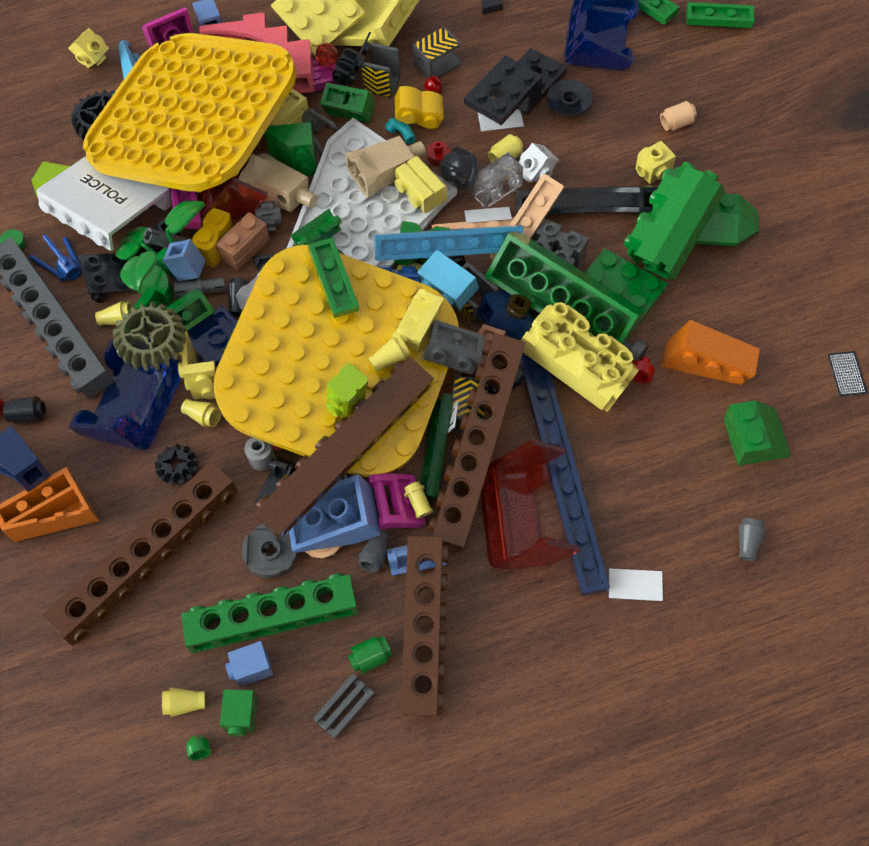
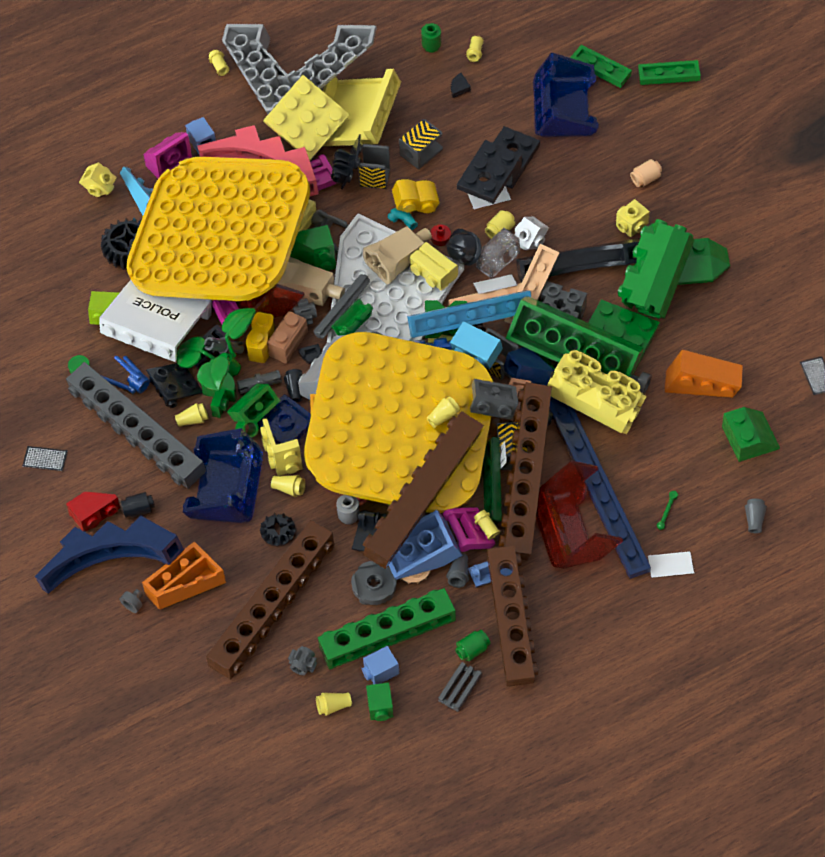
camera: 10 degrees left, 5 degrees down
(133, 333) = (248, 417): olive gear -> none
(158, 639) = (302, 660): none -> dark grey gear
(184, 260) = (244, 360): medium blue brick -> none
(198, 748) = (354, 733): green hinge -> none
(323, 203) = (341, 306): none -> dark grey axle
(326, 54) = (321, 158): clear red plate -> none
(333, 277) = (385, 356): green plate -> none
(345, 391) = (416, 445): lime brick -> none
(347, 102) = (351, 200): green brick -> none
(418, 319) = (461, 379): light yellow hinge -> none
(430, 85) = (420, 173): red hinge -> none
(518, 306) = (538, 359): dark brown bush -> none
(569, 97) = (547, 162): black dish -> none
(645, 372) = (652, 398): red tile -> none
(651, 497) = (673, 496): none -> green hinge

